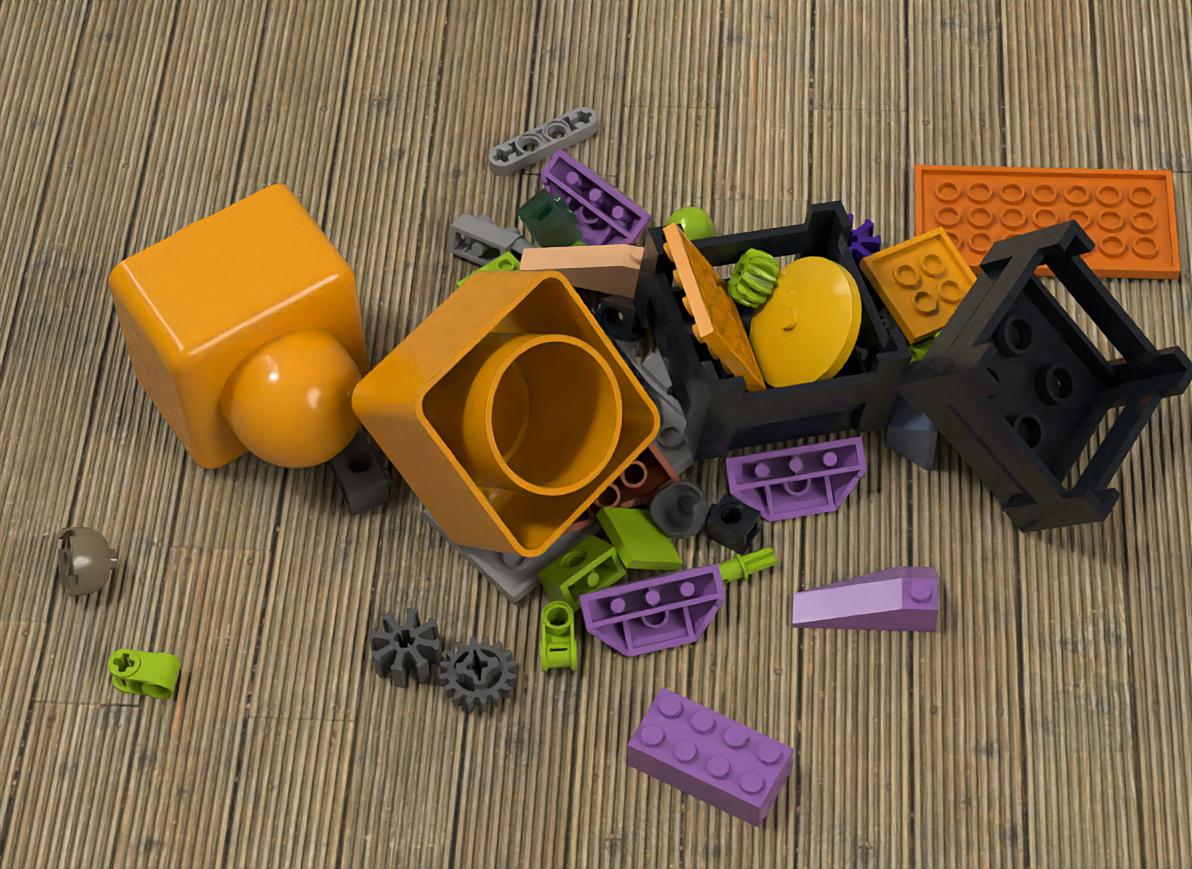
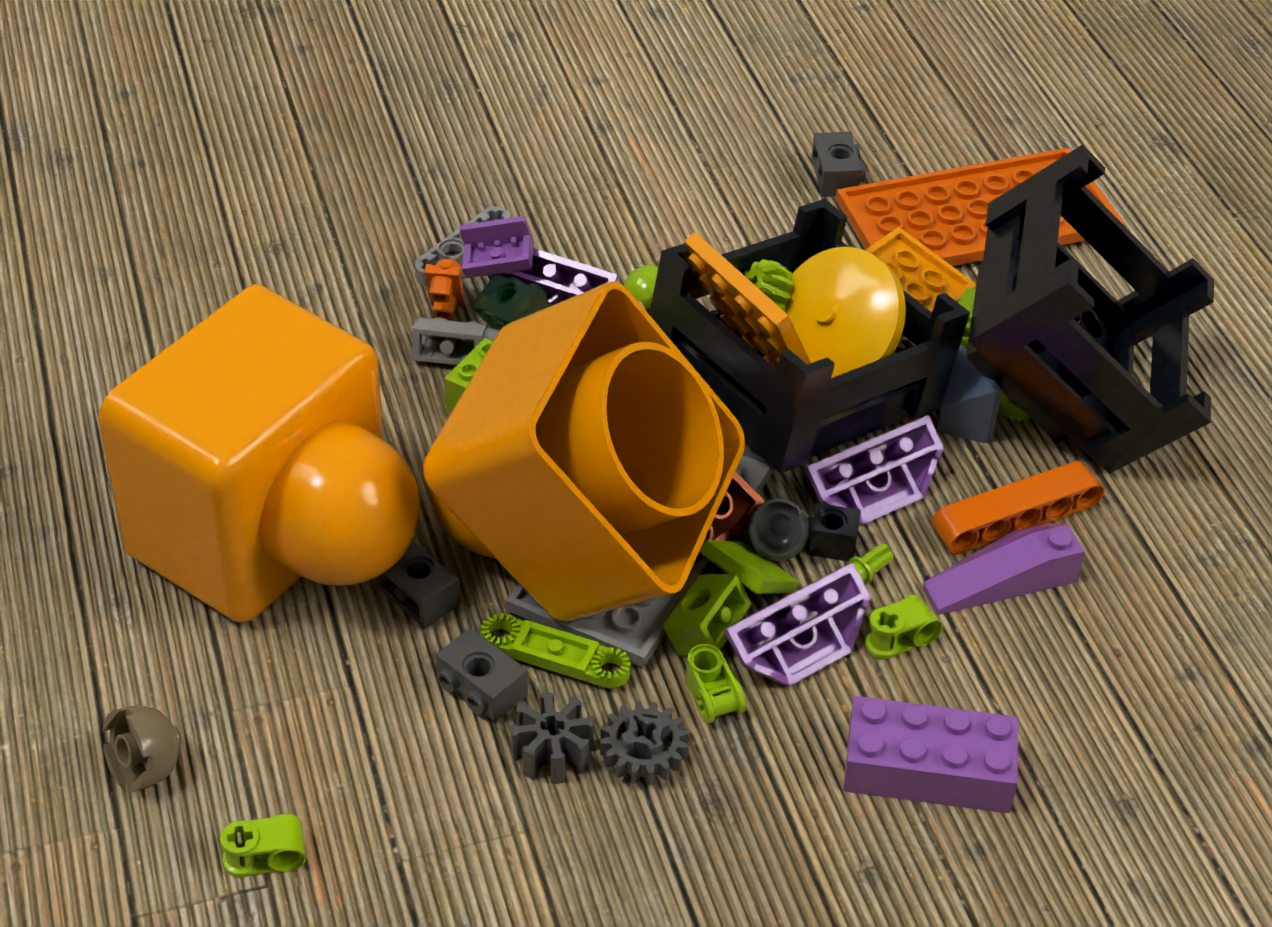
camera: 25 degrees left, 10 degrees down
(367, 557) = (481, 675): none -> dark grey brick
(445, 569) = (557, 650): none -> lime plate
(500, 186) = (445, 287): none -> orange hips
(552, 162) = (497, 247): none -> medium lavender bracket
(749, 629) = (901, 628): none -> lime piece
(913, 544) = (1017, 506): none -> orange beam
(931, 133) = (836, 162): none -> dark grey brick

